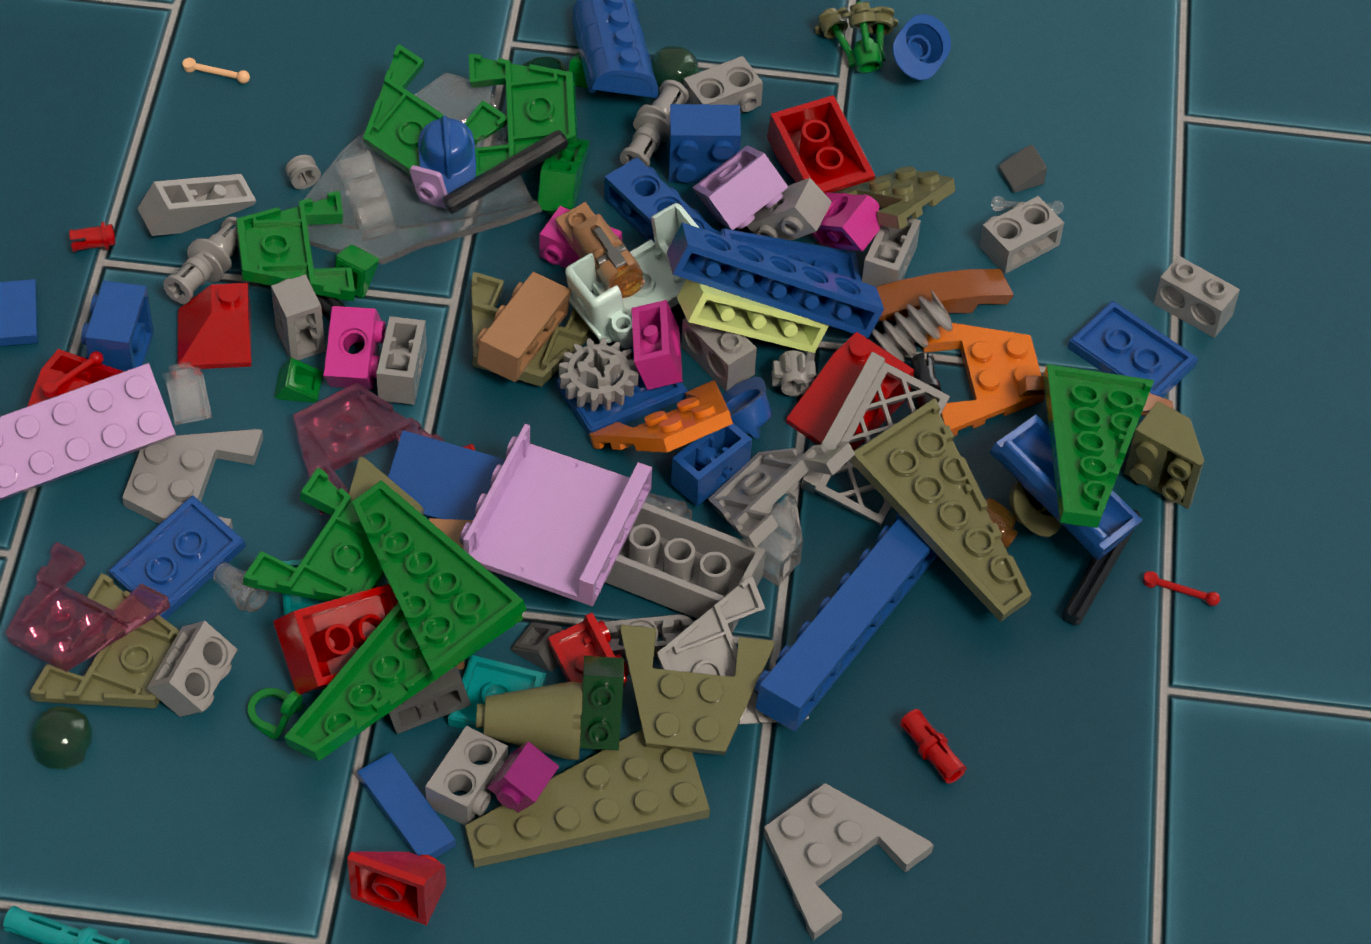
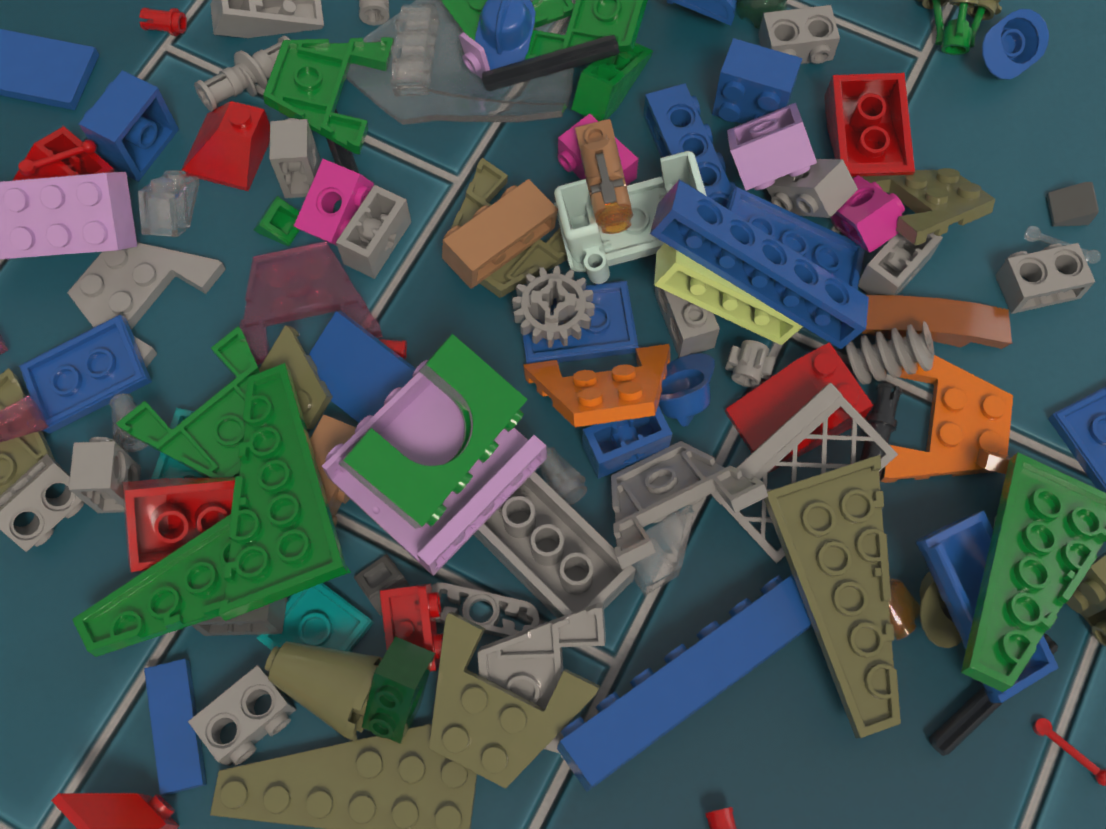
camera: 25 degrees right, 15 degrees up
(251, 626) = (98, 474): none -> light grey brick
(291, 704) = (103, 578): green piece -> none
(362, 265) = (380, 119): green slope -> none
(522, 777) = (283, 750): magenta brick -> none
(585, 454) = (486, 407): none -> green arch
(653, 123) = (714, 50): light grey piece -> none
(656, 344) = (620, 294): dark pink brick -> none

